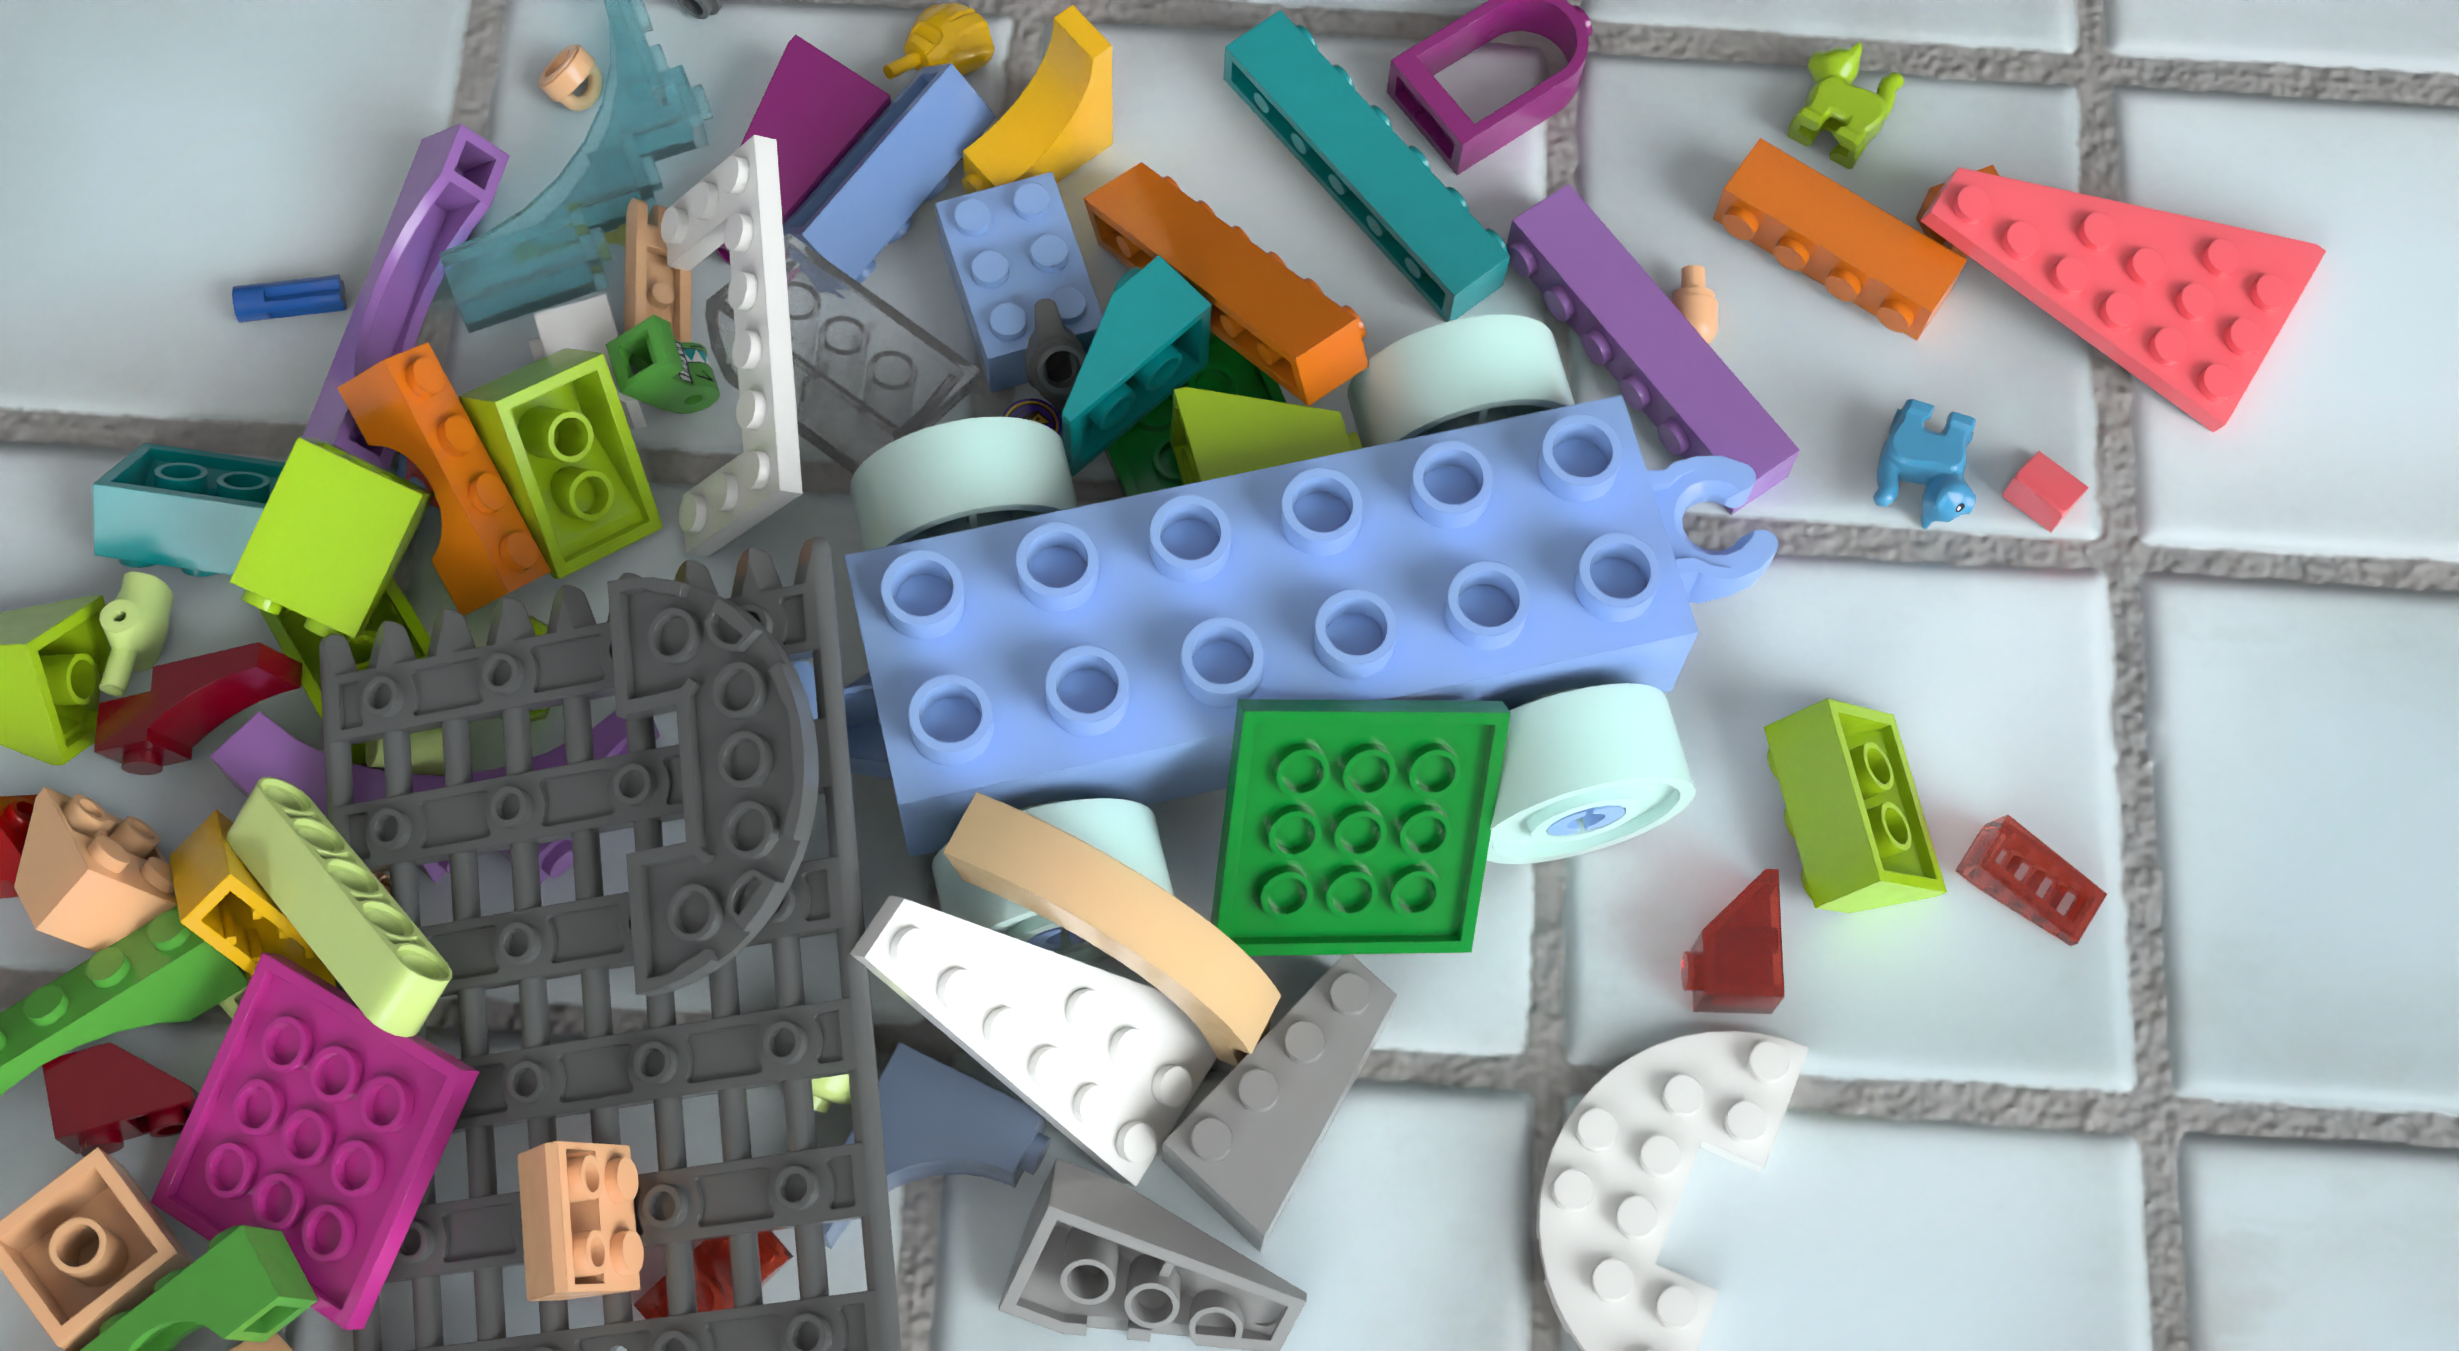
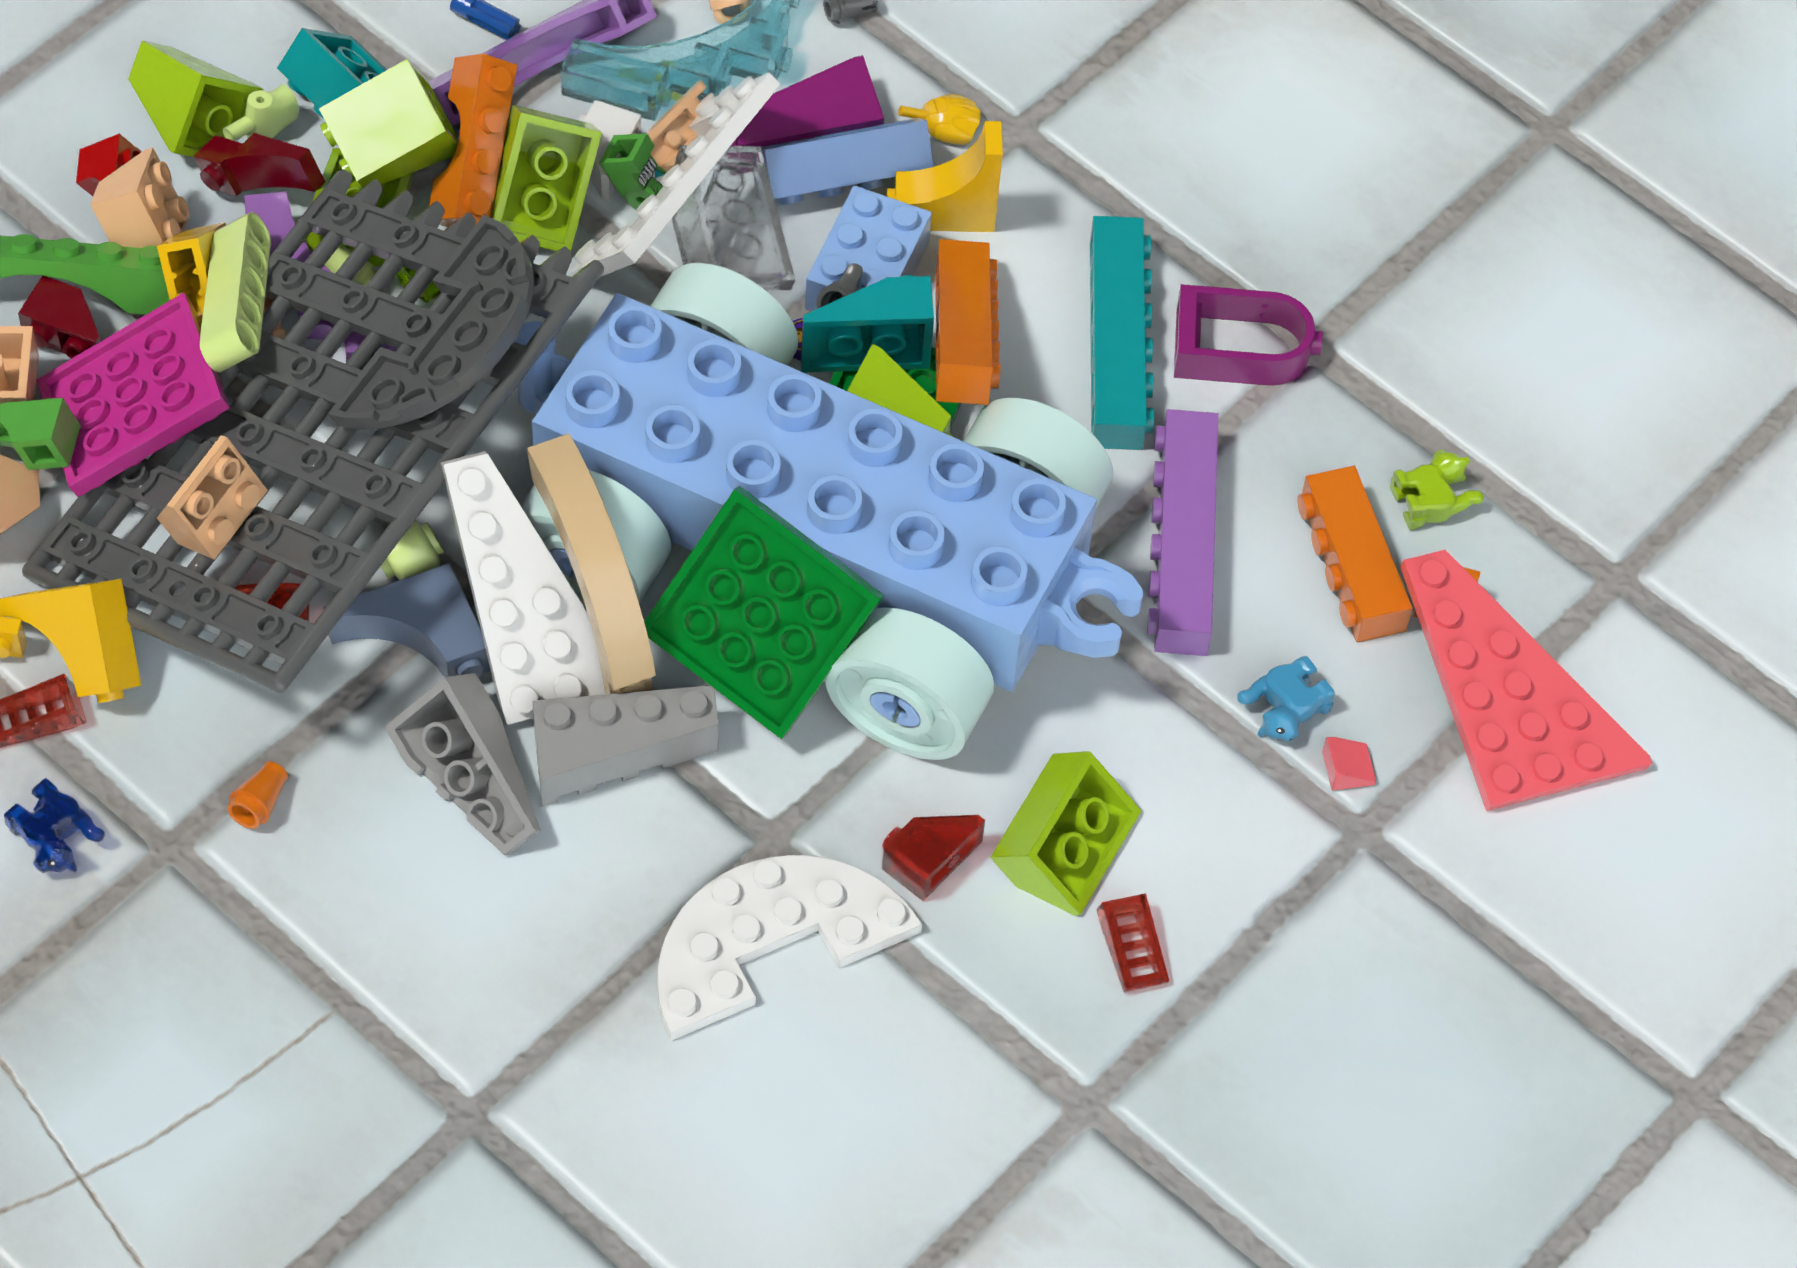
camera: 40 degrees right, 10 degrees down
(1697, 302) = (1236, 532): light nougat cylinder -> none

